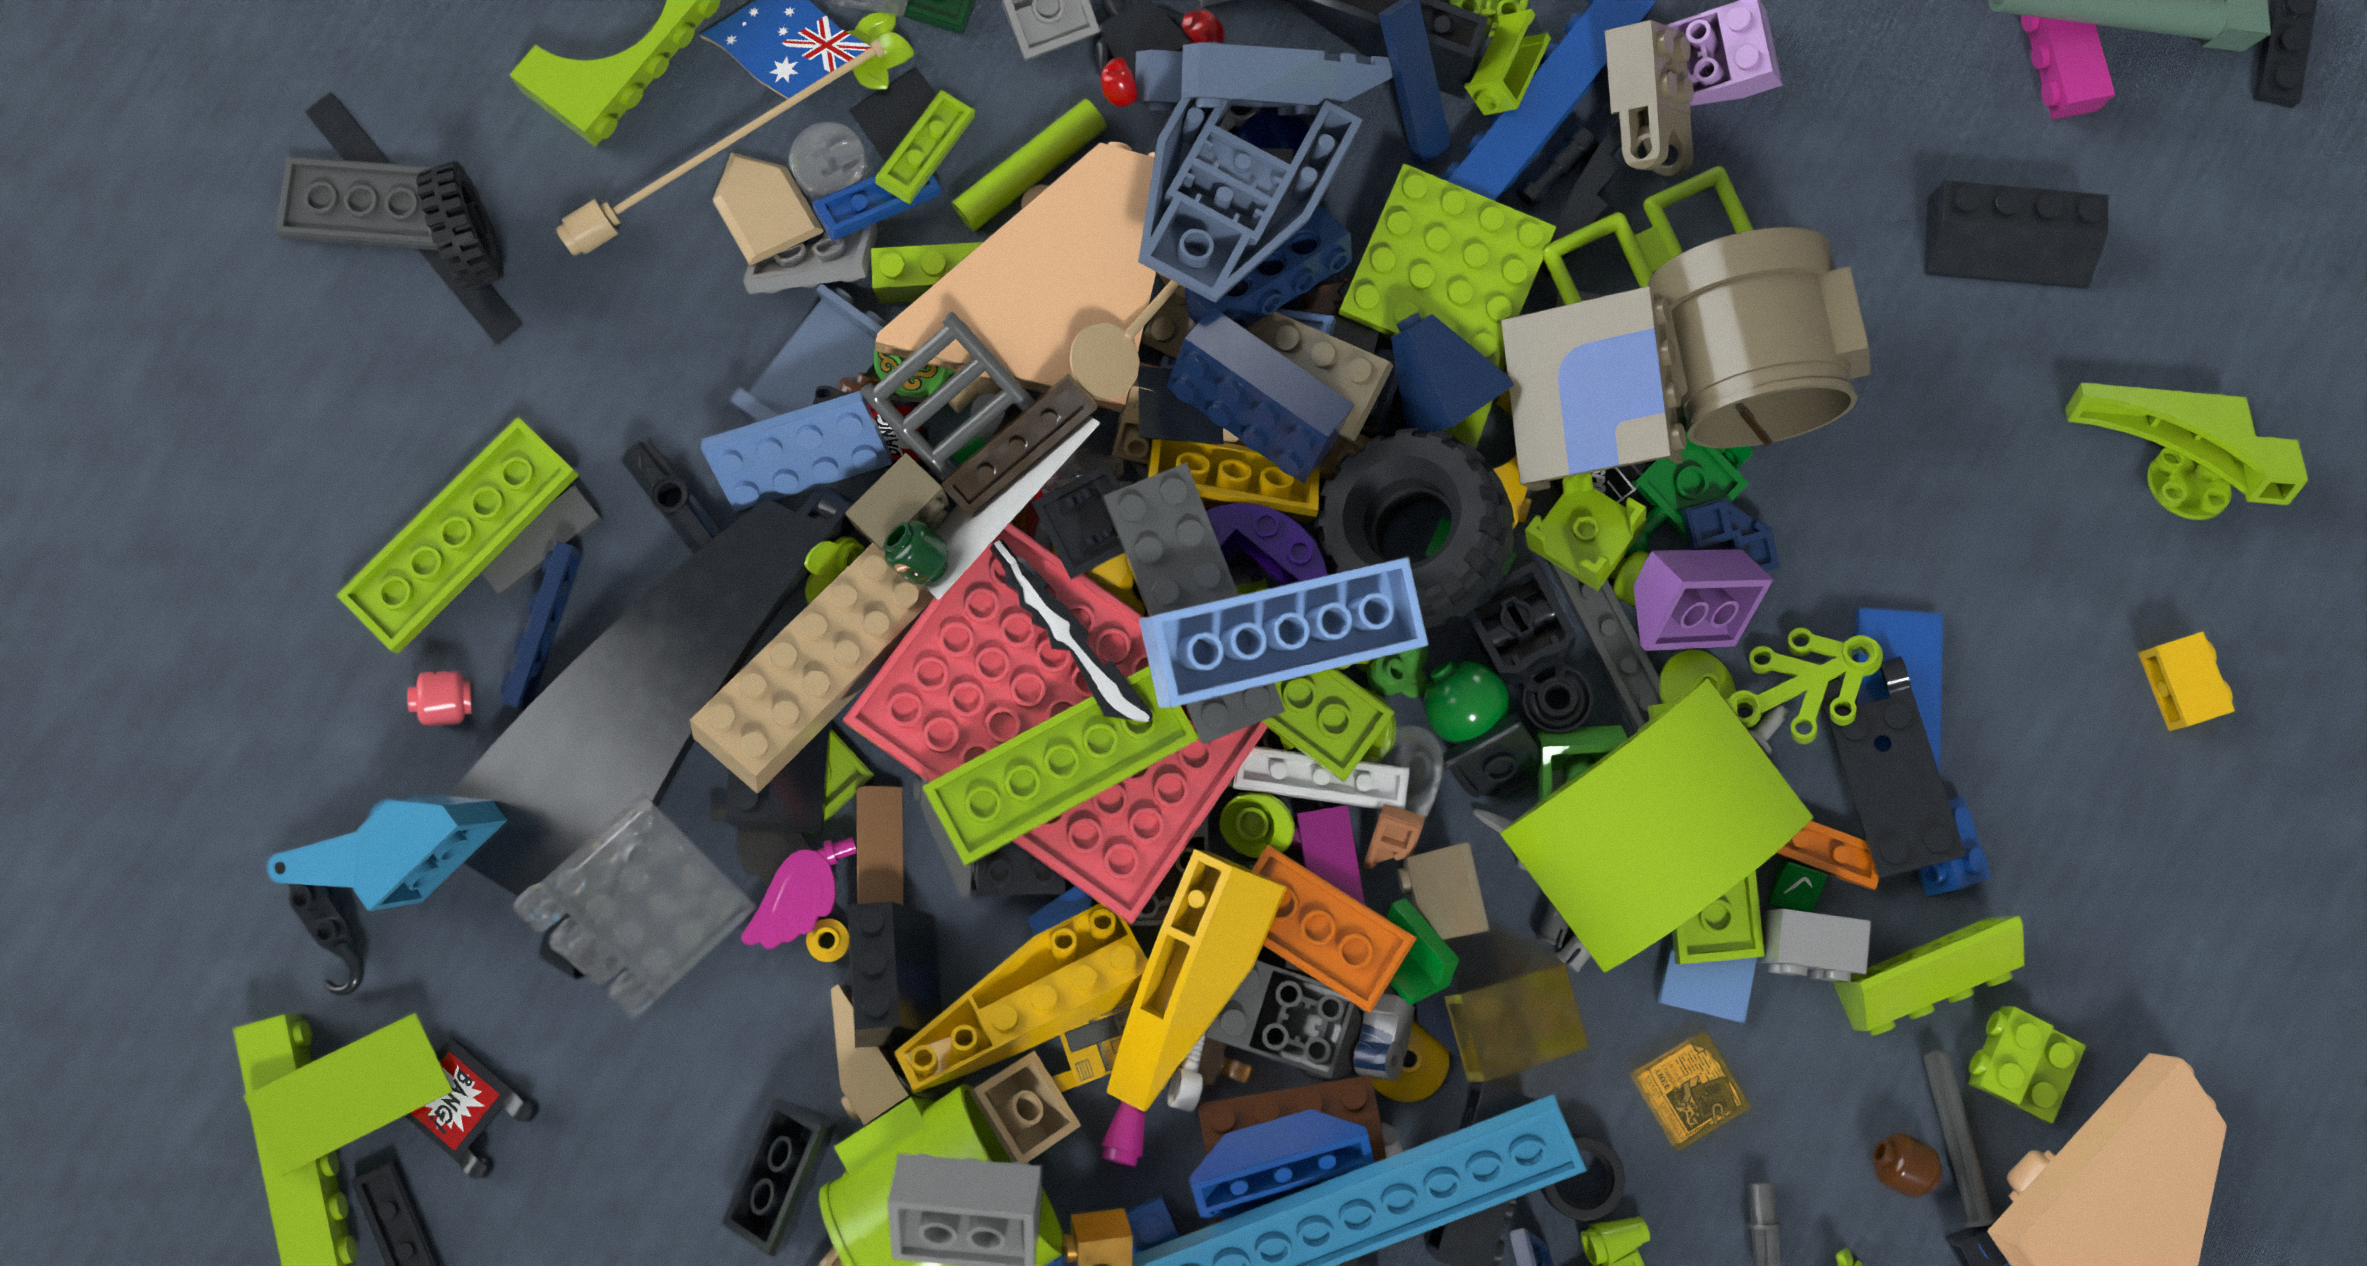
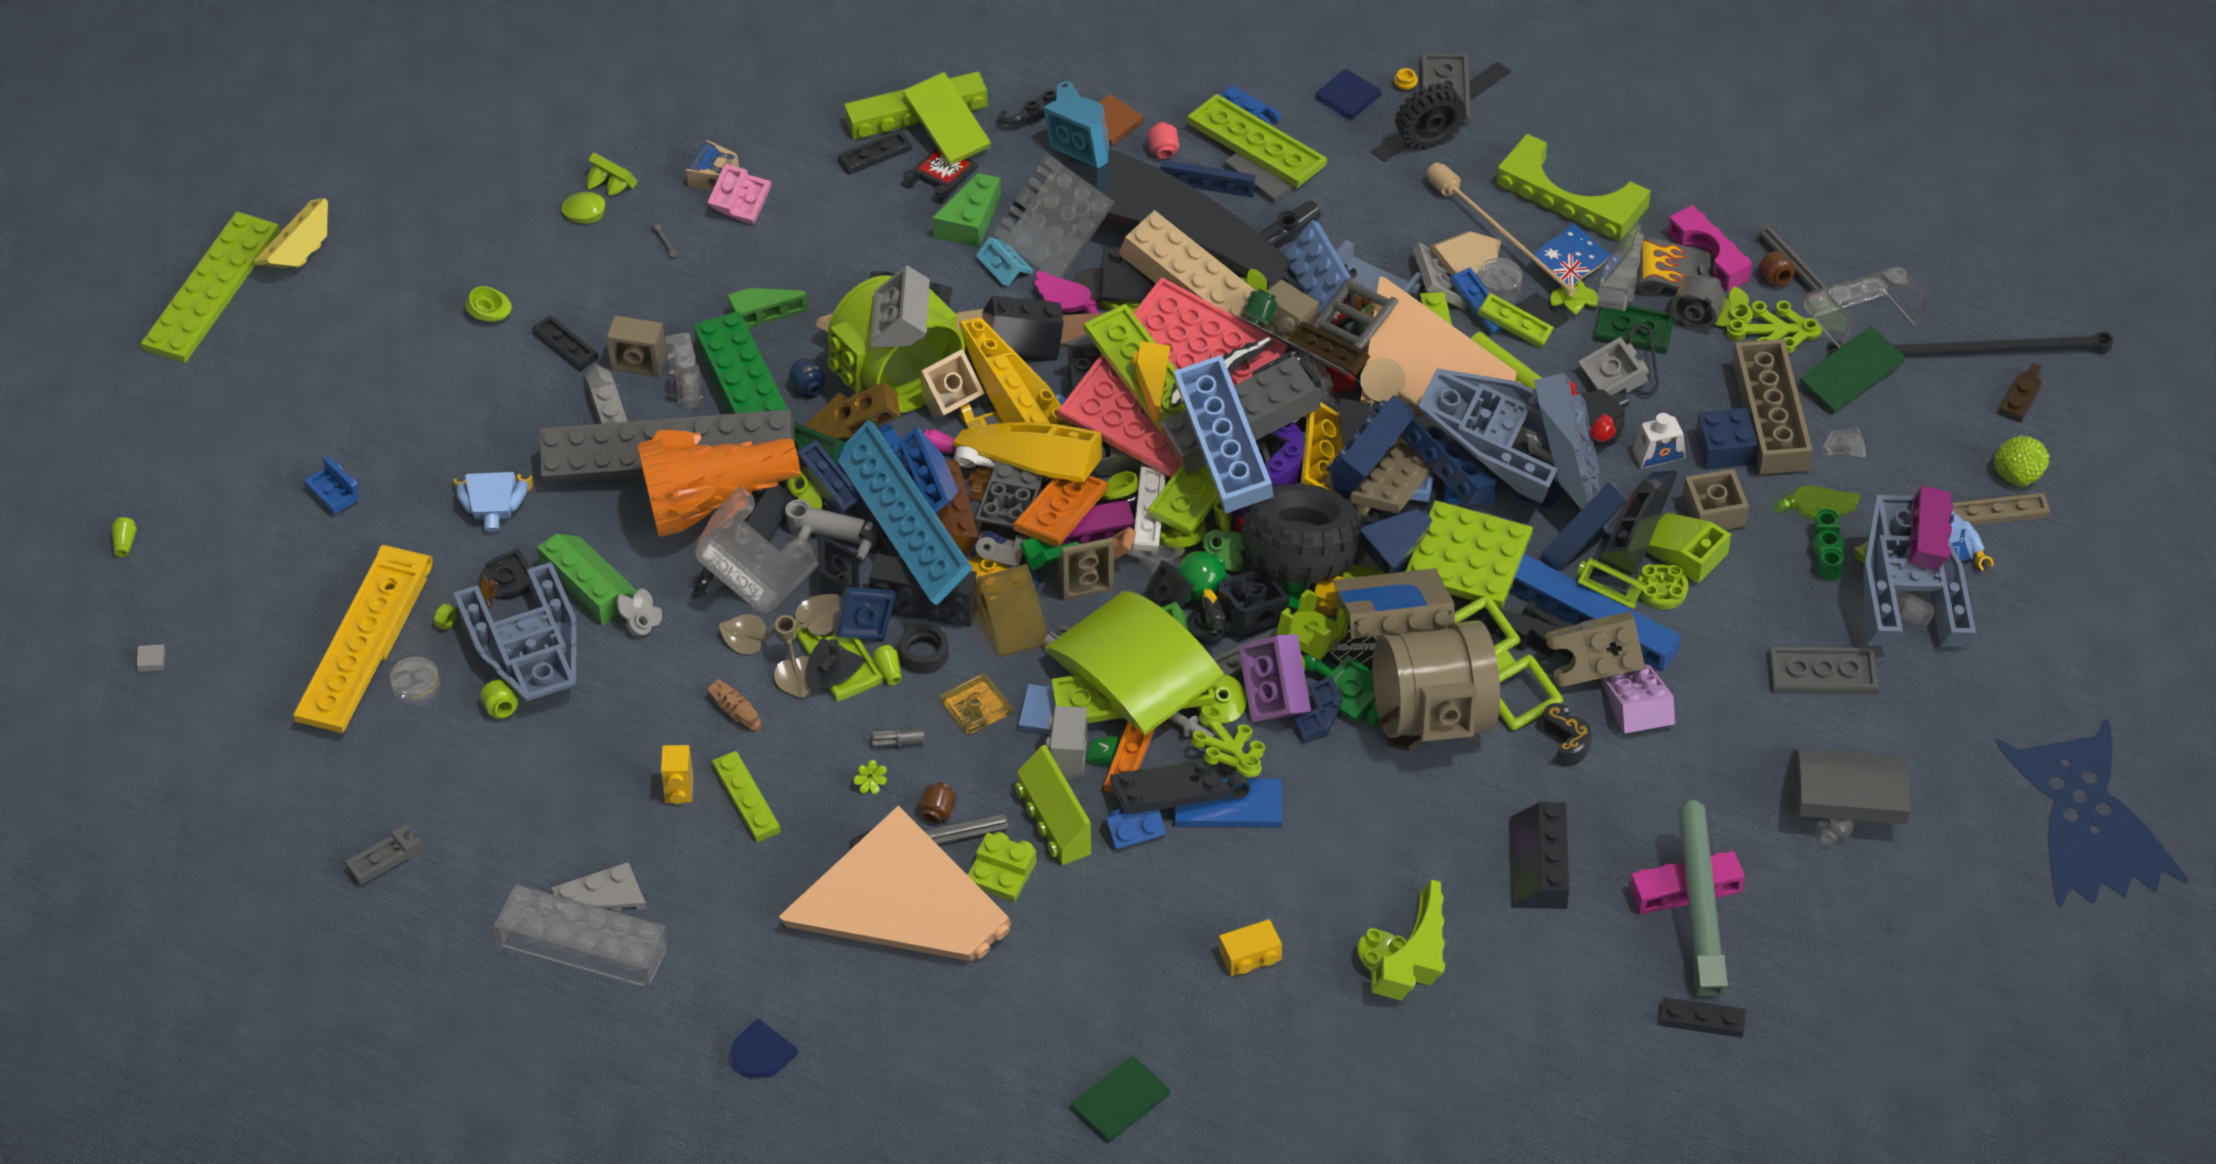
camera: 90 degrees right, 30 degrees down
(334, 267) = (1405, 79): none -> yellow plate
(356, 368) = (1348, 94): none -> clear blue tile
(364, 541) = (1251, 104): none -> blue hinge
(364, 778) = (1119, 118): none -> dark orange tile
(581, 1058) = (969, 211): none -> bright green wedge
(703, 1001) = (1002, 260): none -> medium azure panel
(1092, 749) = (1151, 373): none -> yellow slope
(1560, 686) = (1214, 613): none -> black piece
(1788, 150) = (1571, 730): none -> black animal

